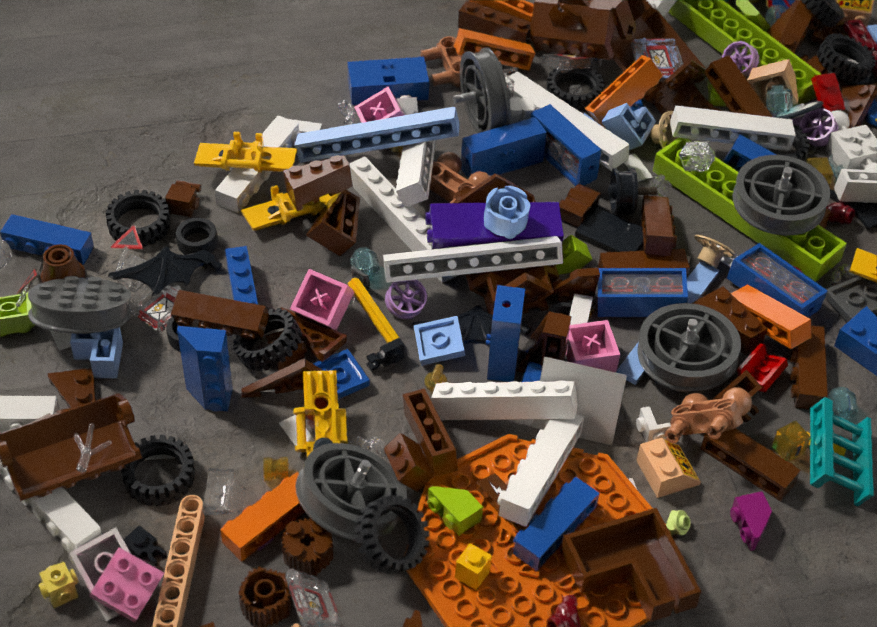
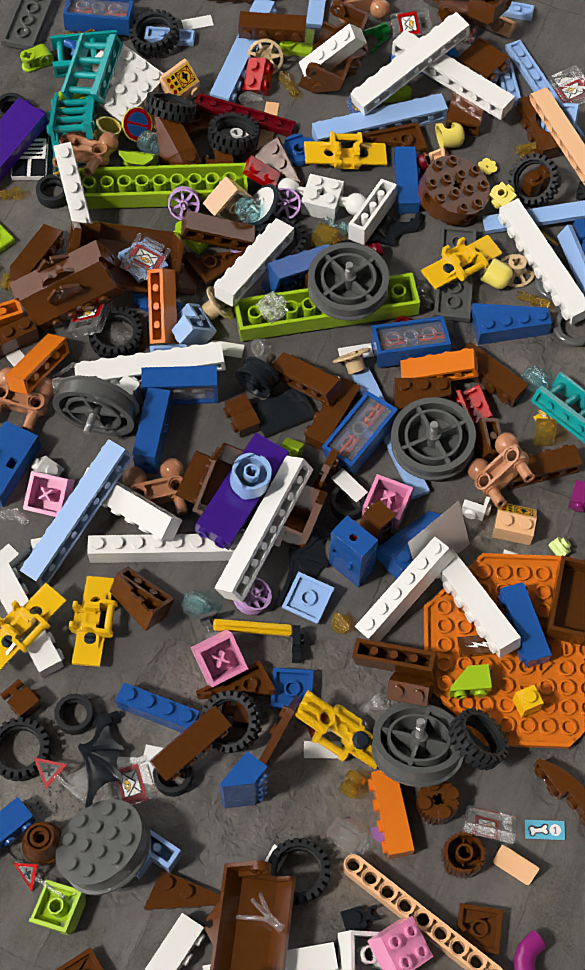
camera: 55 degrees left, 15 degrees up
(317, 179) = (102, 590): reddish brown wedge -> none

